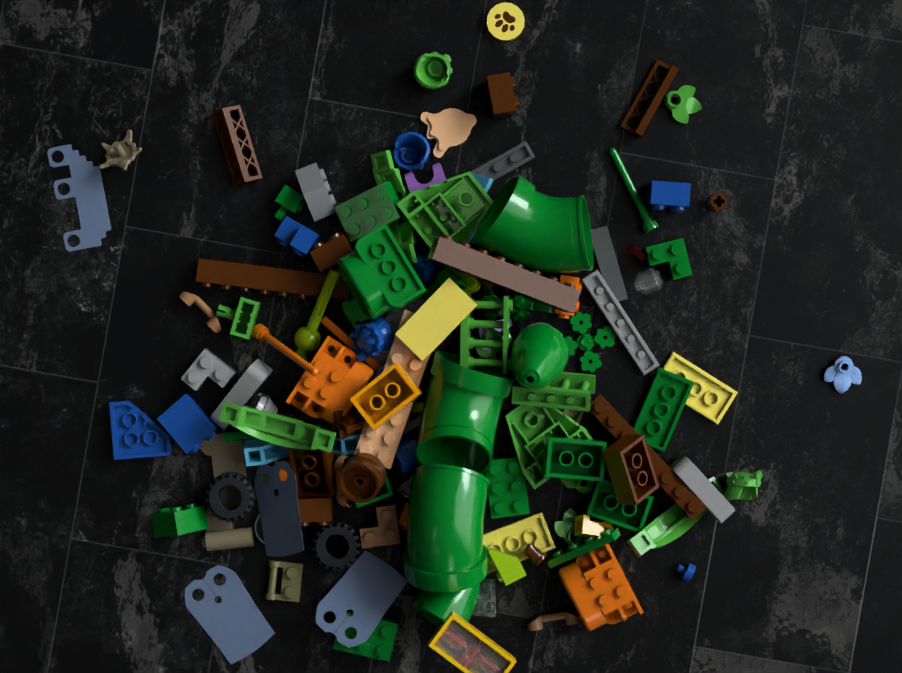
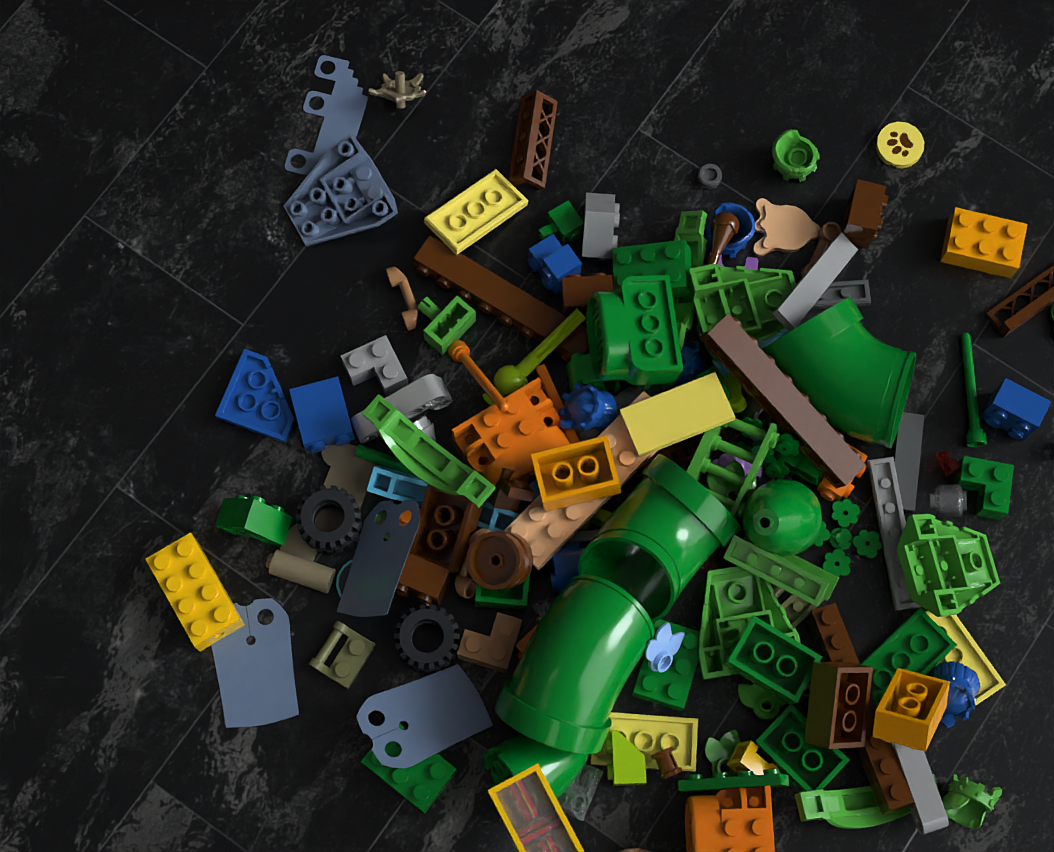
camera: 20 degrees right, 15 degrees down
(120, 255) = (340, 195): none -> sand blue wedge
(164, 587) = (195, 592): none -> yellow brick
(222, 222) = (476, 211): none -> light yellow tile
(377, 112) = (709, 176): none -> dark grey tile
(407, 154) = (724, 227): none -> reddish brown piece
(483, 118) = (826, 236): none -> medium nougat bar
(489, 170) = (815, 282): none -> light grey tile
(497, 488) = (662, 648): none -> light blue plate
(596, 74) = (983, 242): none -> light orange brick
(665, 332) = (945, 564): none -> bright green wedge
(680, 448) = (911, 709): none -> light orange brick
(703, 416) = (962, 690): none -> blue hair

